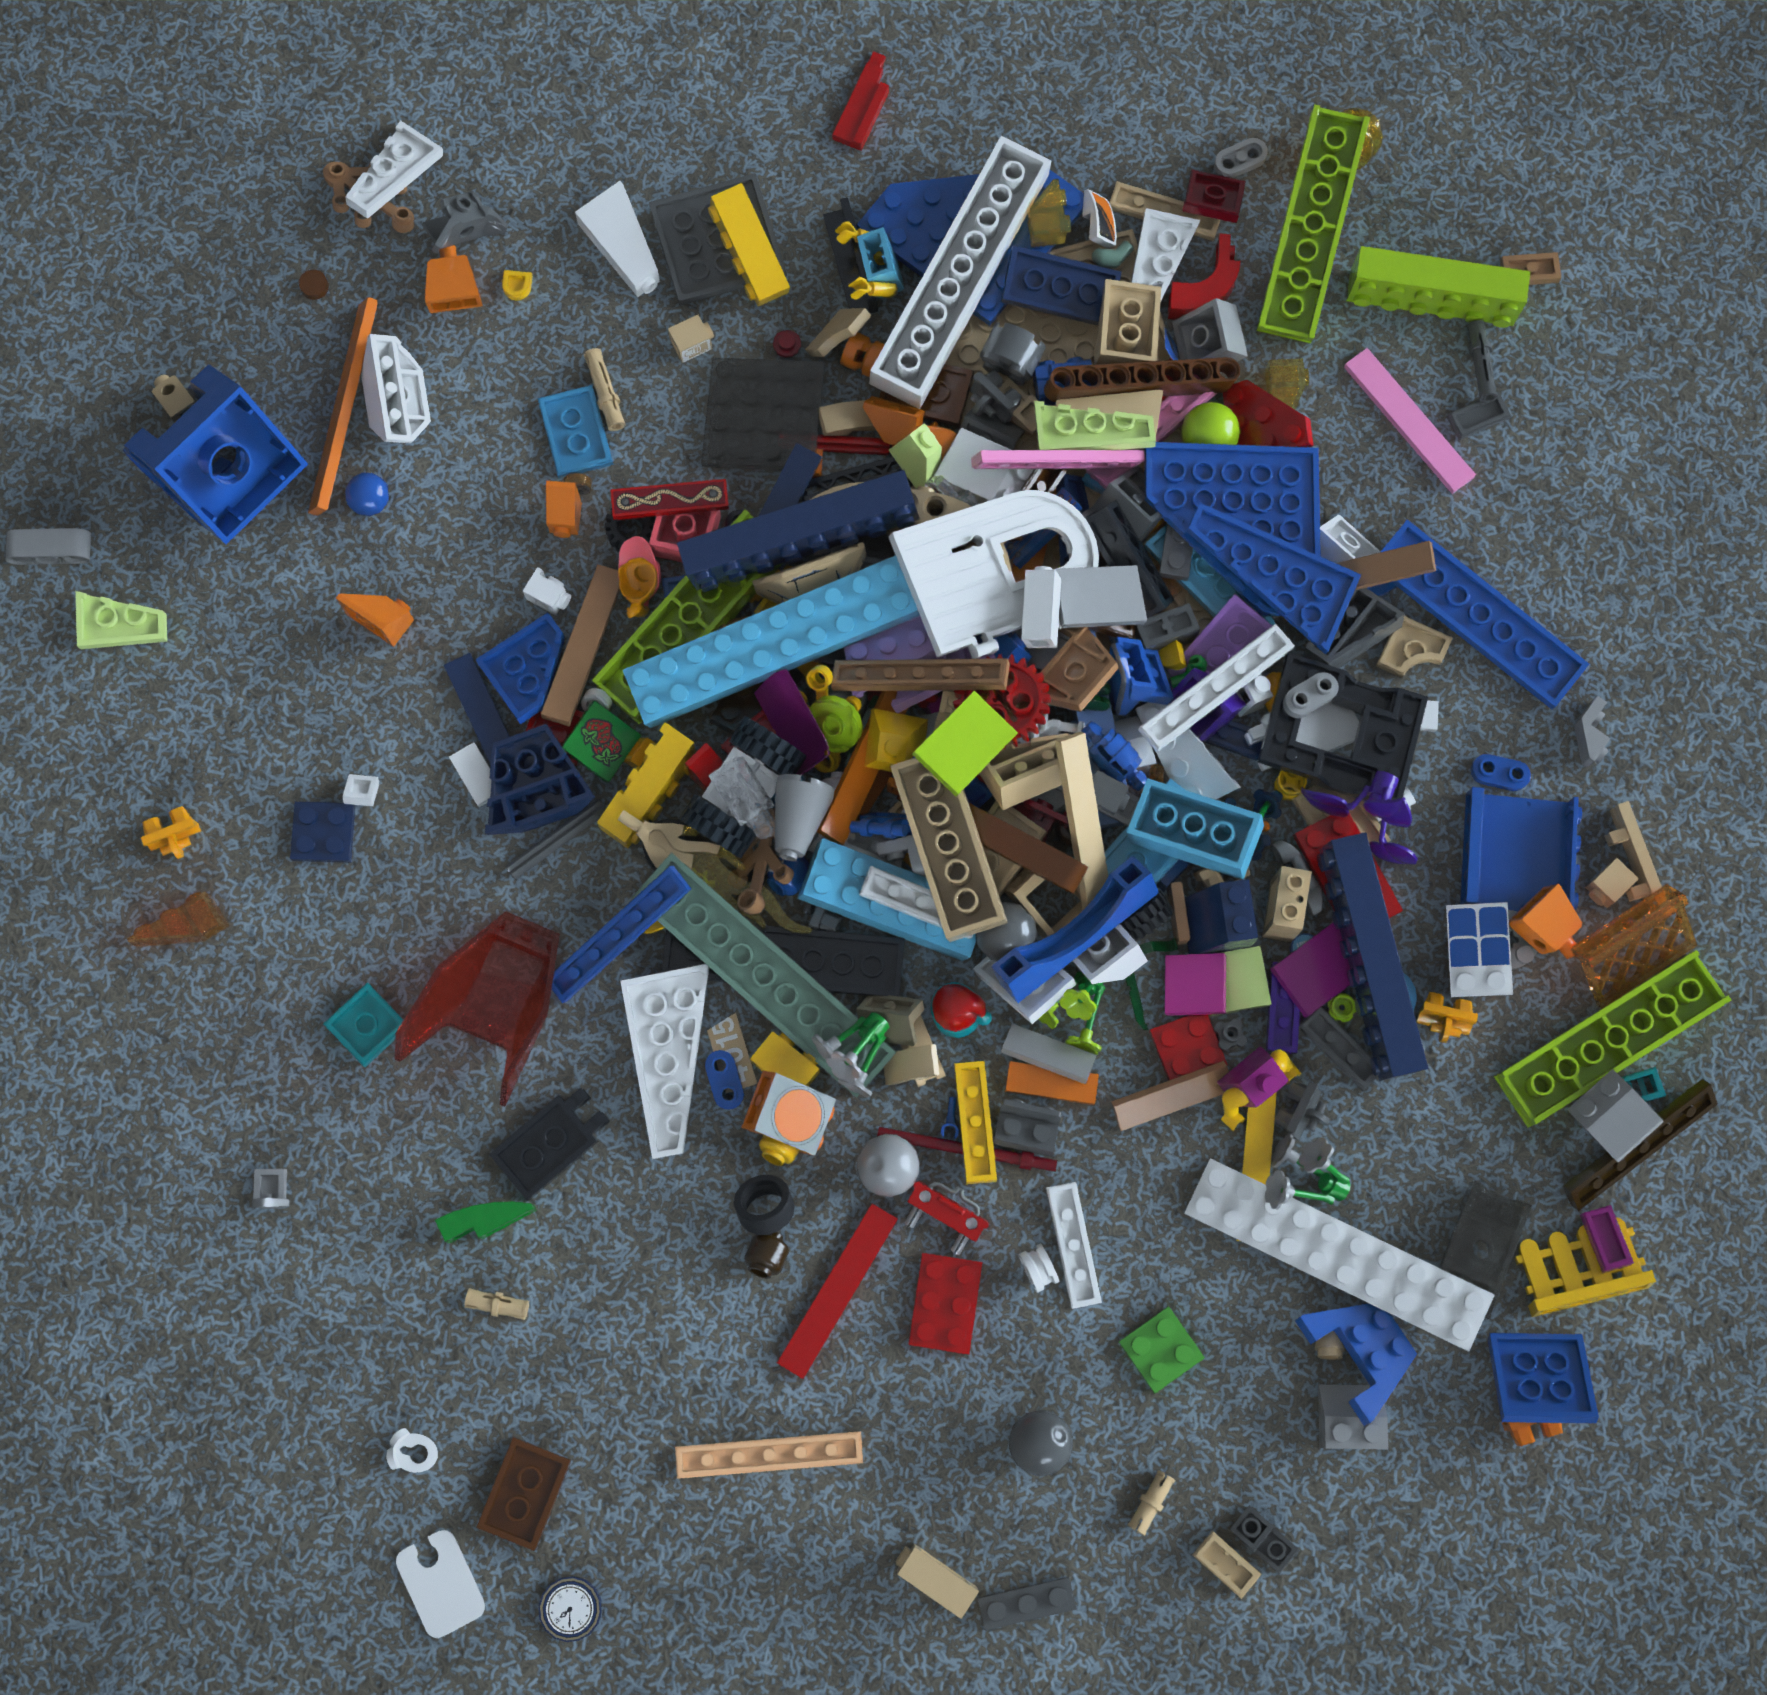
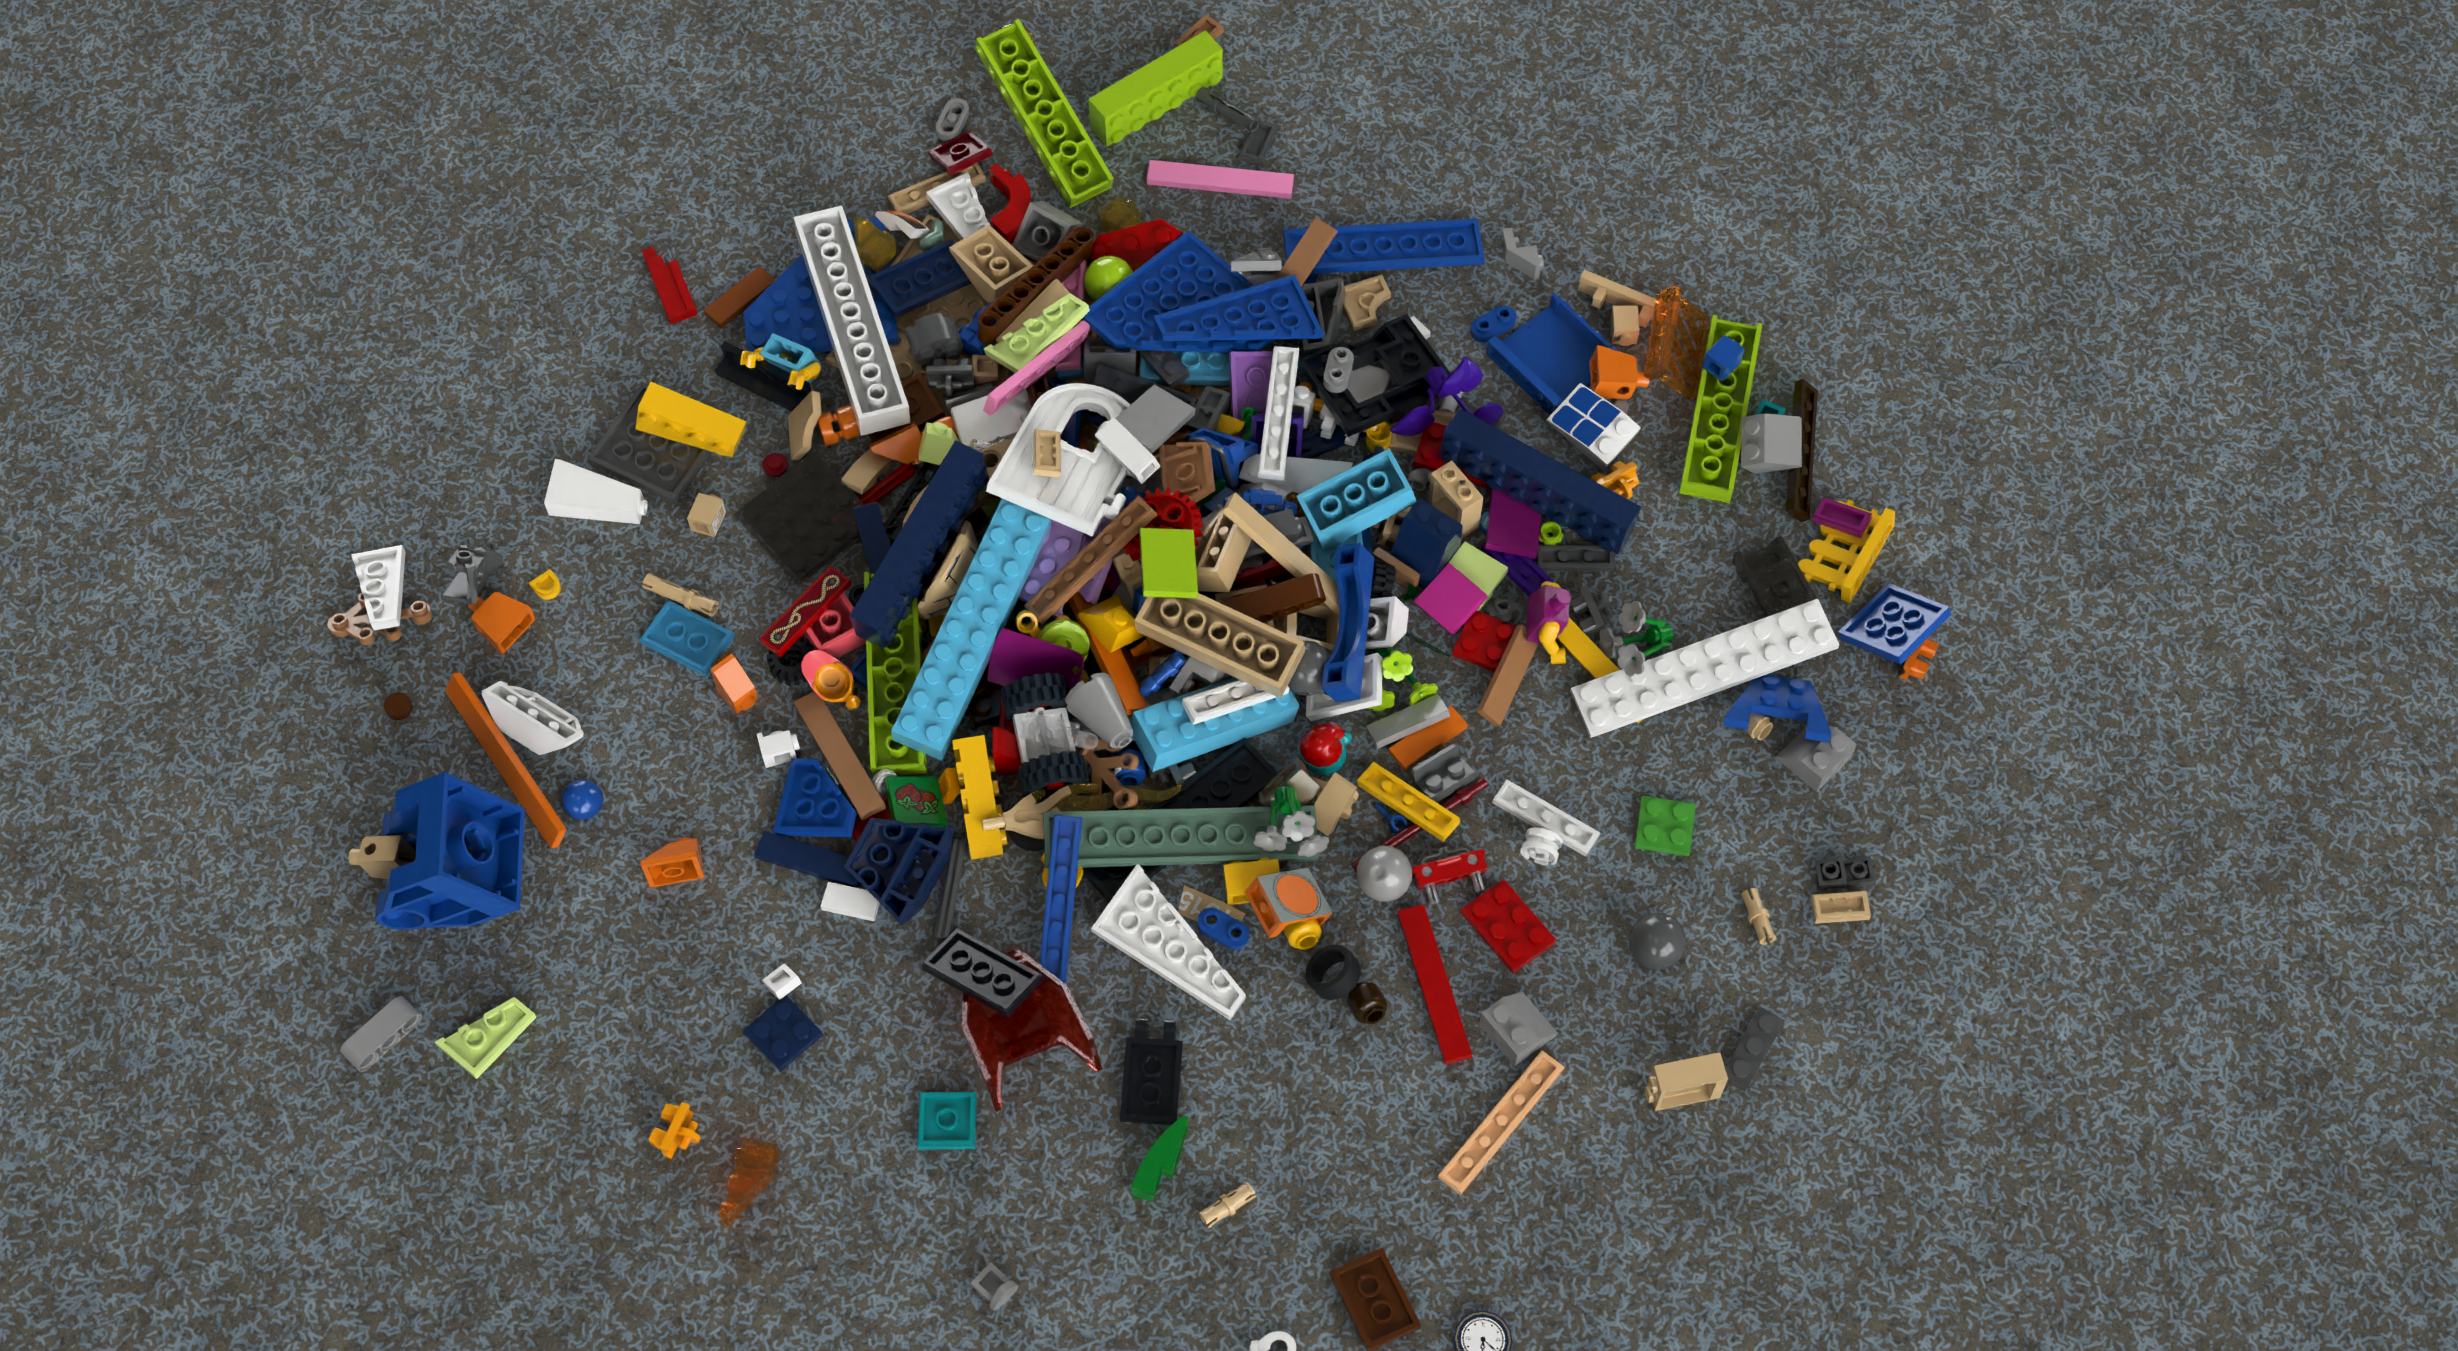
camera: 45 degrees left, 15 degrees down
(505, 934) = (982, 972): none -> black tile
(863, 1394) = (1516, 1027): none -> light grey slope
(907, 165) = (738, 297): none -> dark orange tile
(969, 550) = (1046, 453): none -> tan plate
(1350, 531) = (1262, 260): none -> light grey wing
(1657, 1000) = (1723, 358): none -> blue brick

